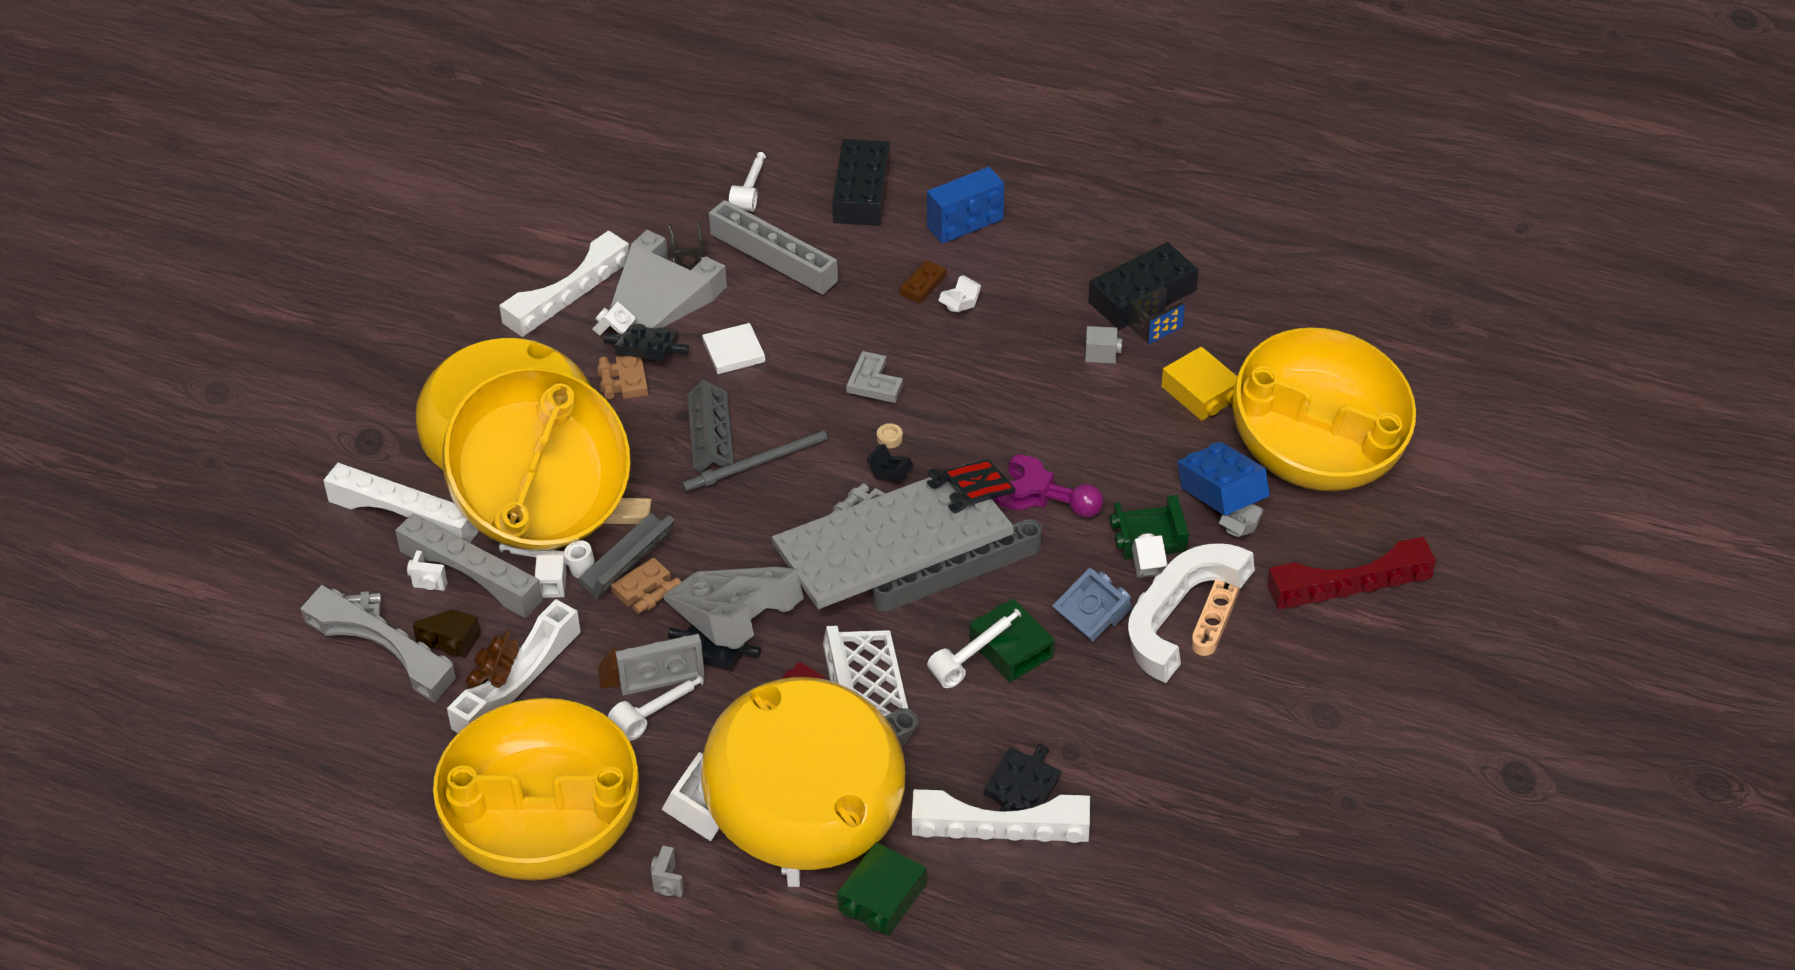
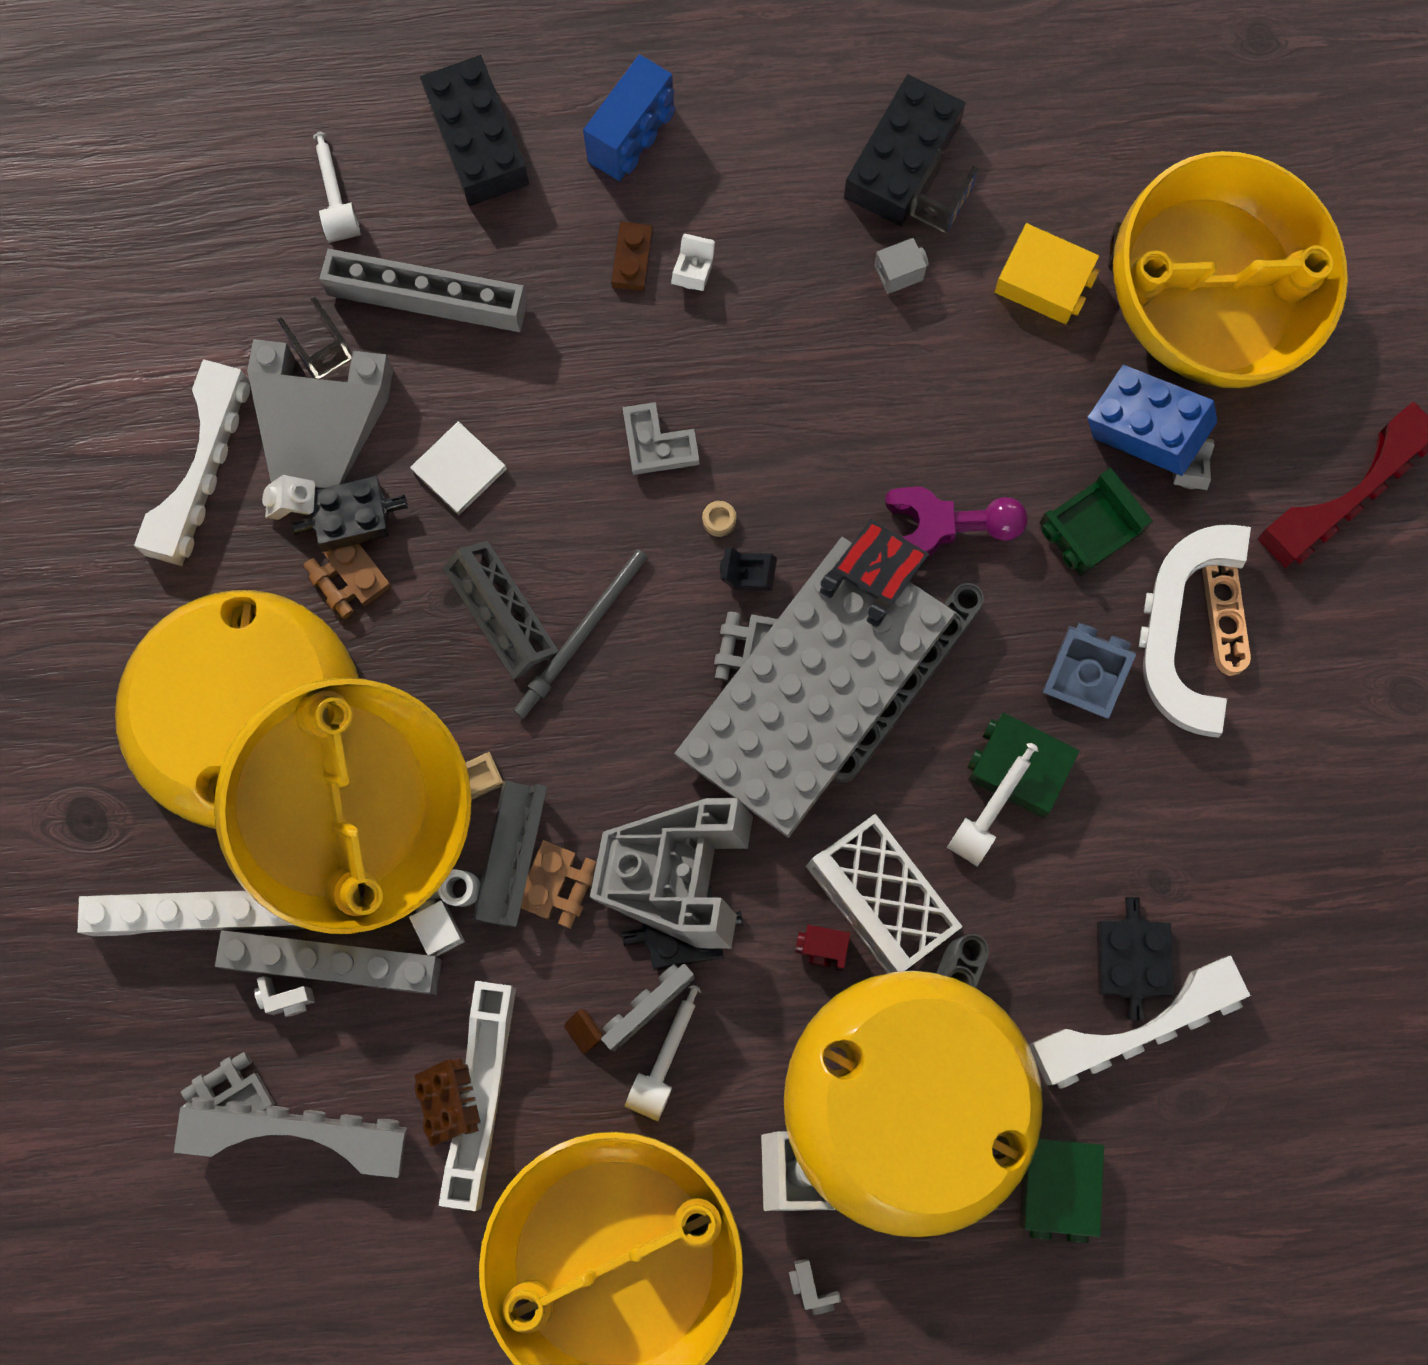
camera: 25 degrees left, 30 degrees up
(449, 632) = (364, 1070): dark brown slope -> none
(1149, 555) = (1119, 570): white brick -> none

